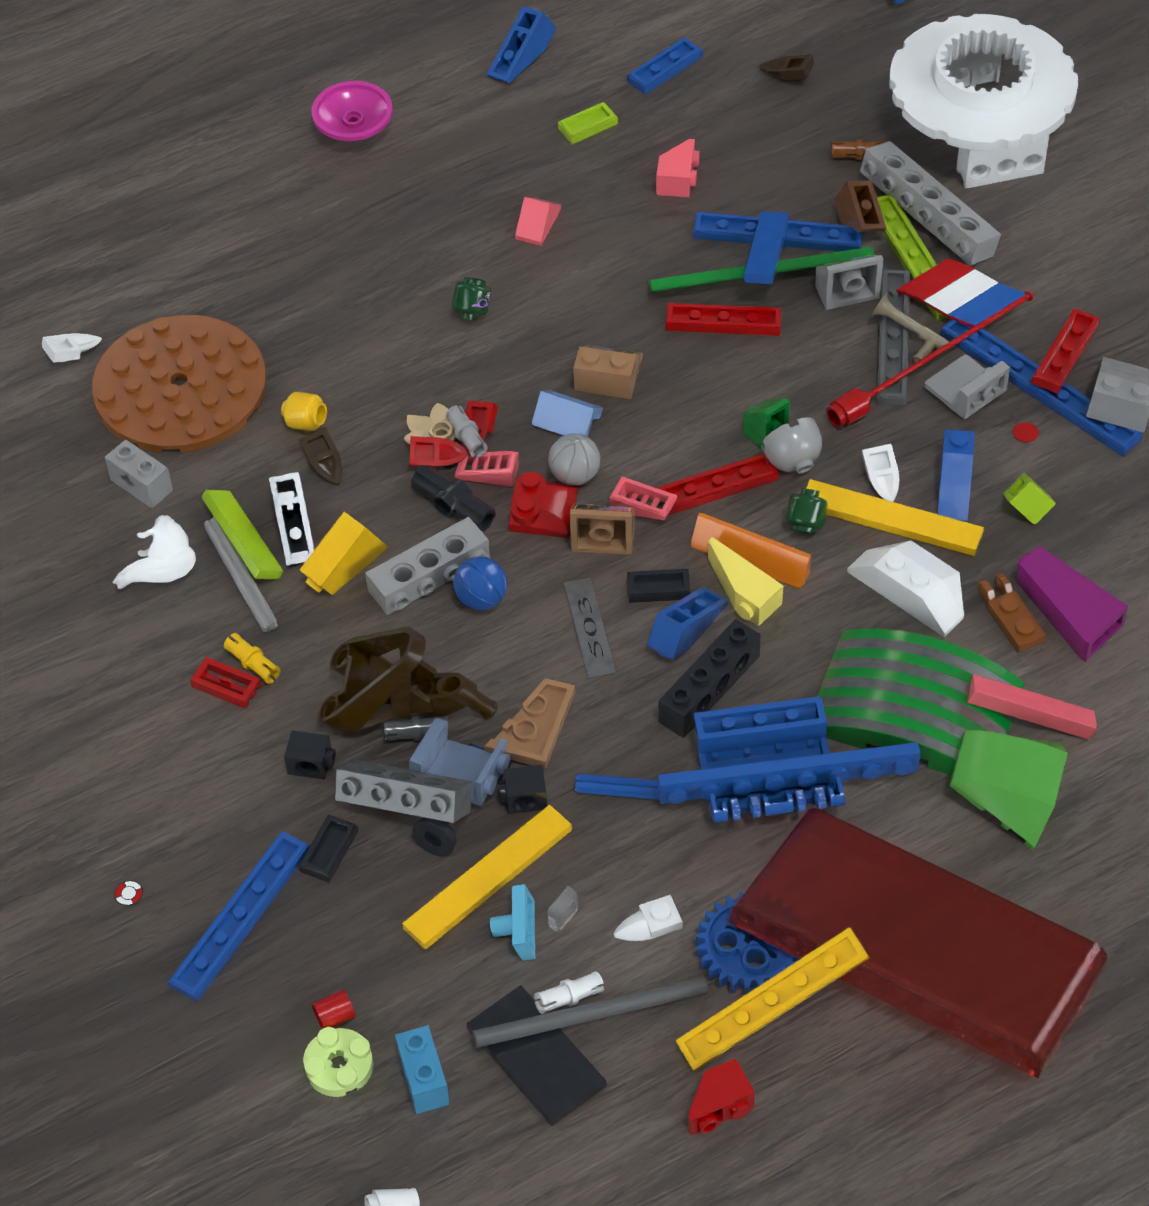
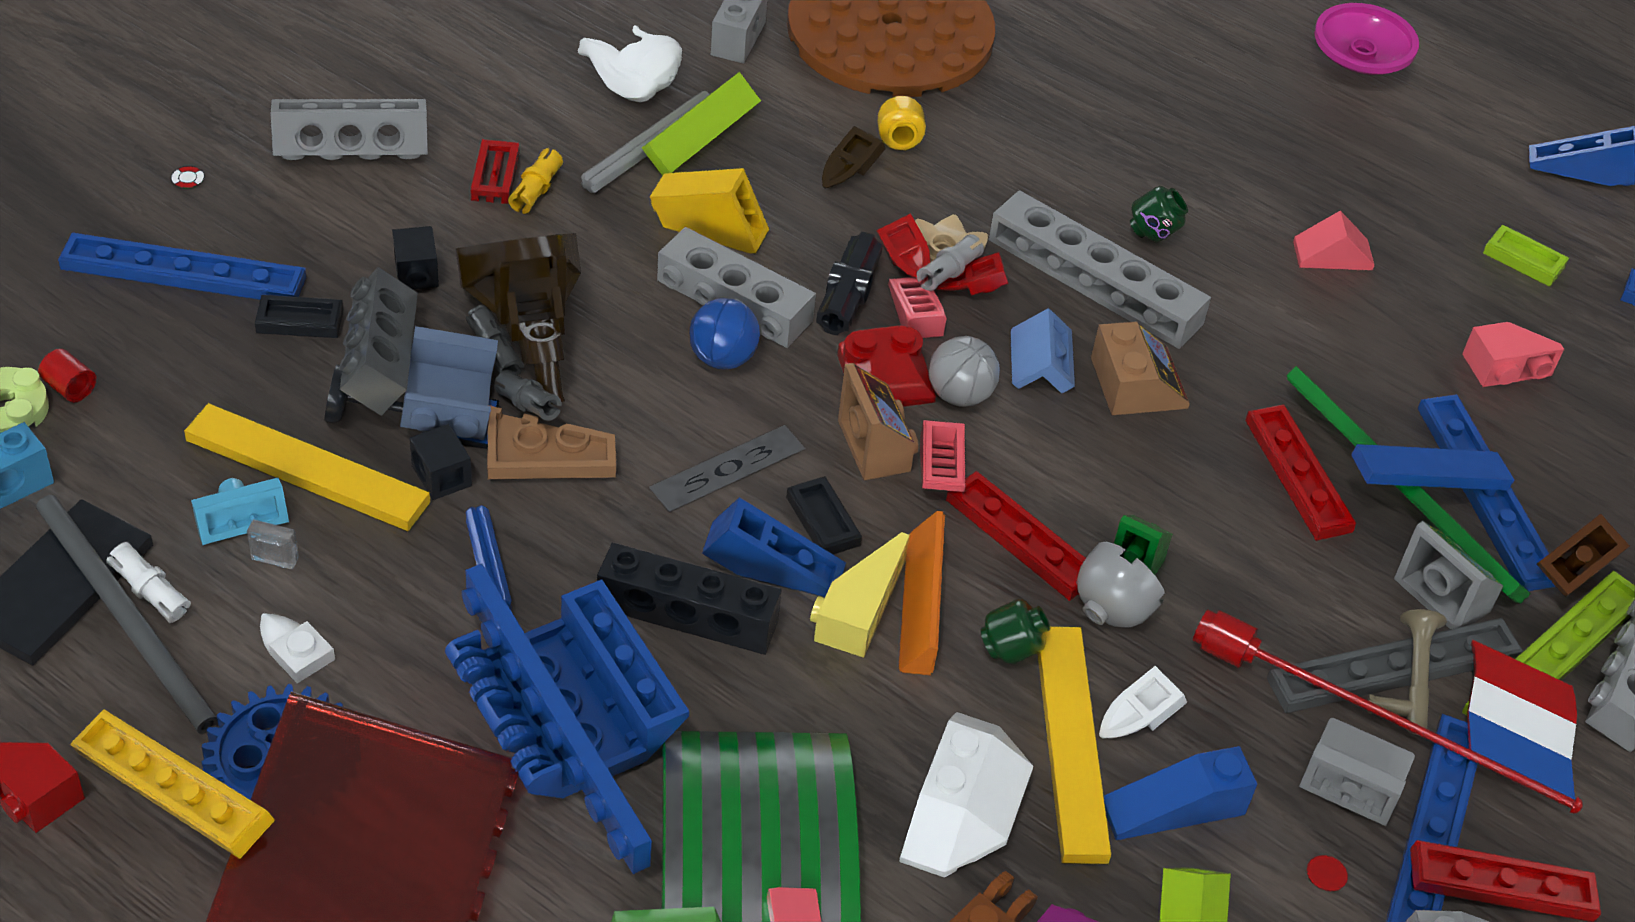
camera: 60 degrees right, 5 degrees down
(144, 760) = (330, 115): none -> light grey brick
(292, 518) = (755, 145): slope -> none
(486, 718) = (528, 395): none -> dark grey pin
(502, 352) = (1099, 269): none -> light grey brick

